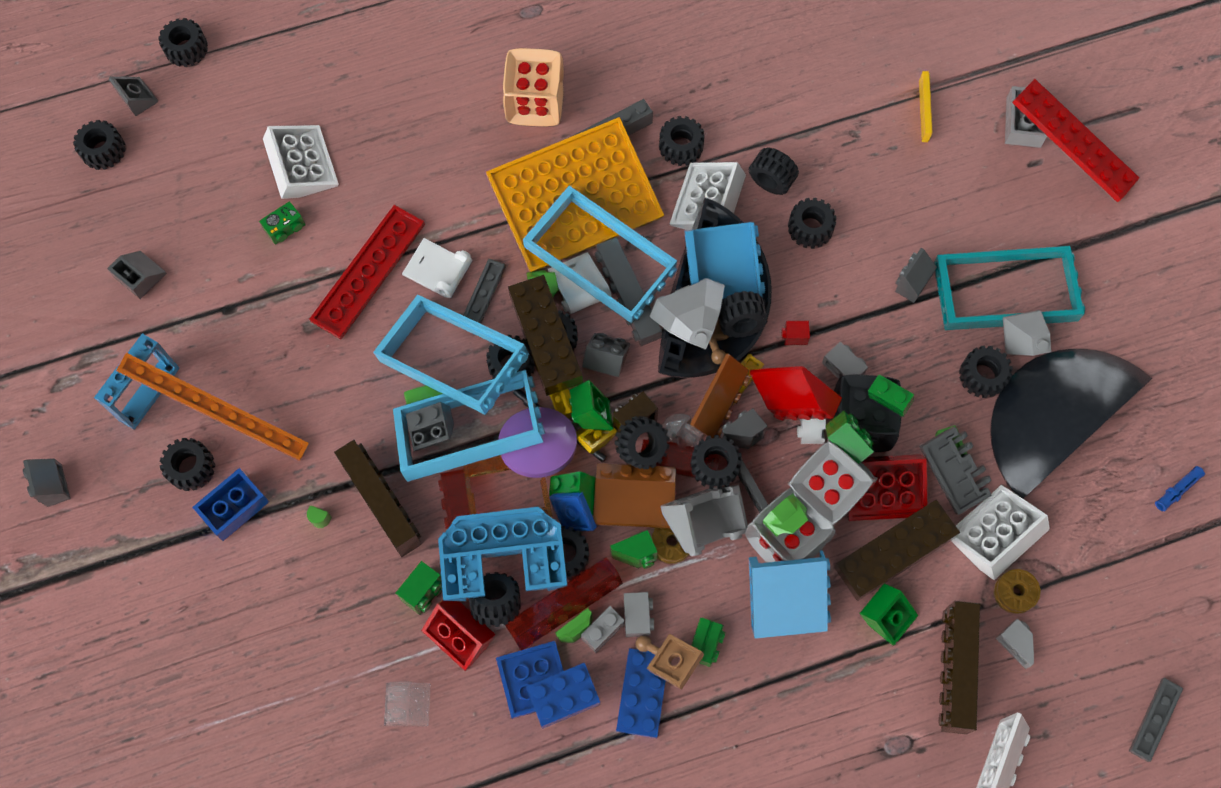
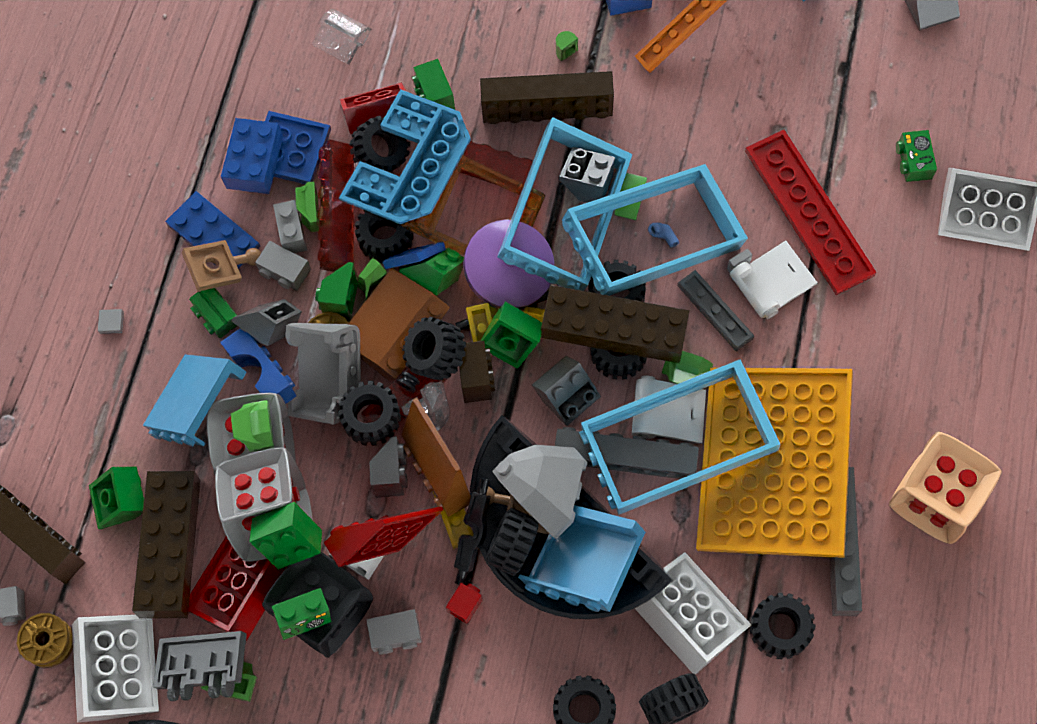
camera: 125 degrees right, 0 degrees up
(437, 294) = (738, 259): none -> light grey tile
(441, 358) = (665, 232): none -> medium blue arm
(610, 535) = (371, 276): none -> bright green slope
(674, 453) = (408, 382): none -> black bush
(689, 590) = (268, 321): none -> dark grey slope
(721, 596) = (245, 352): none -> blue arch
(752, 488) = (334, 446): dark grey tile -> none
(756, 349) = (475, 518): none -> black piece
(764, 722) = (110, 321): none -> light grey tile

